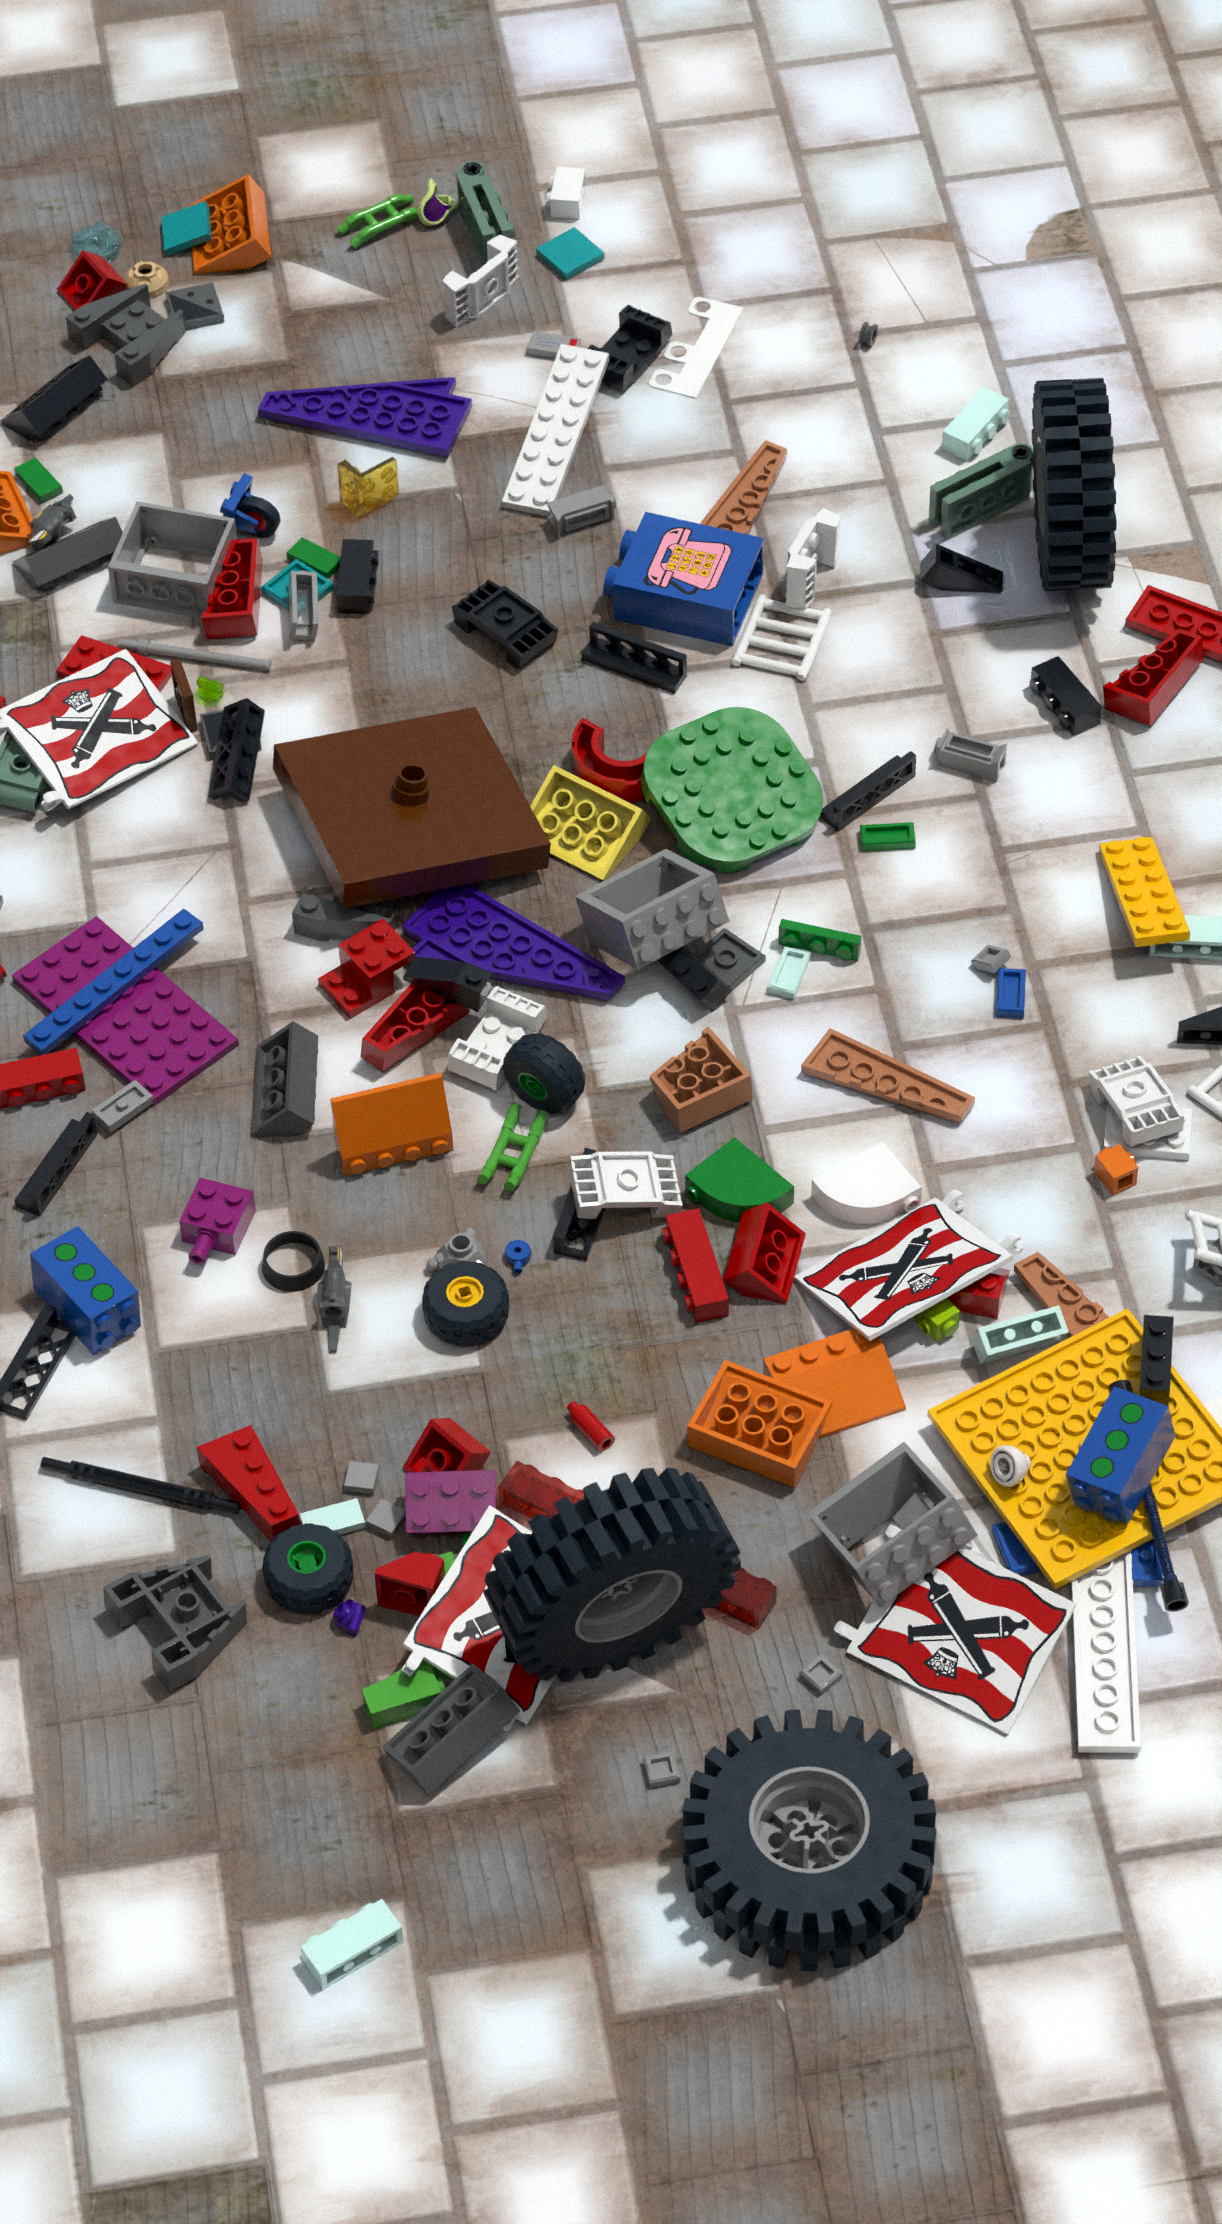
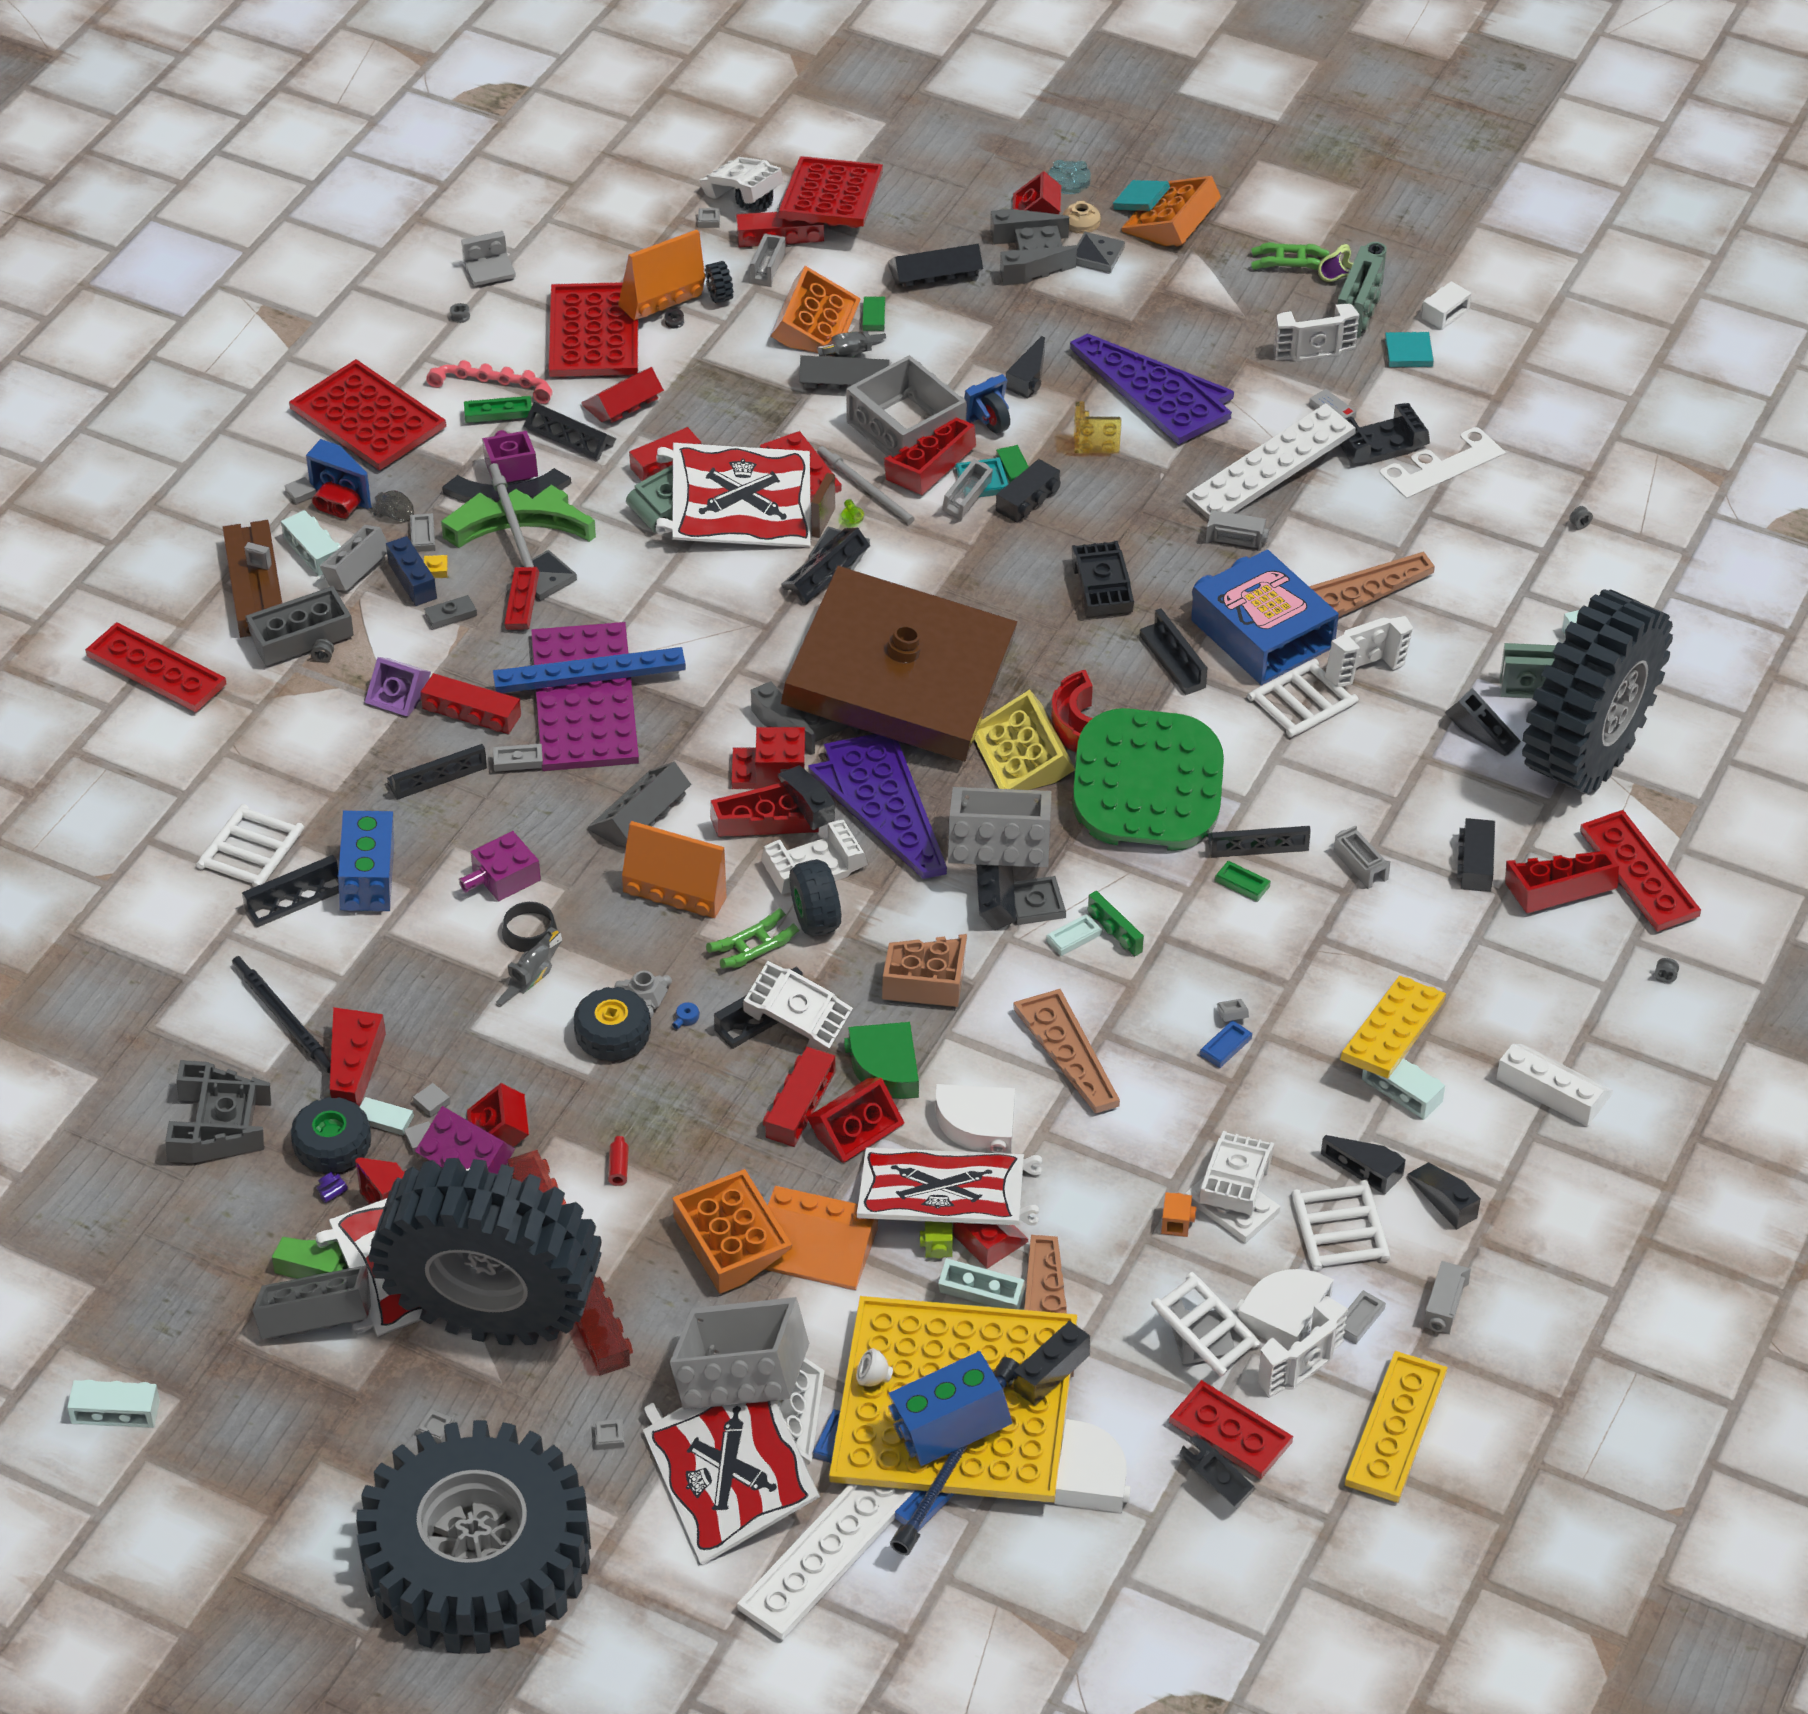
camera: 35 degrees right, 5 degrees down
(246, 456) = (1025, 374): none -> black slope

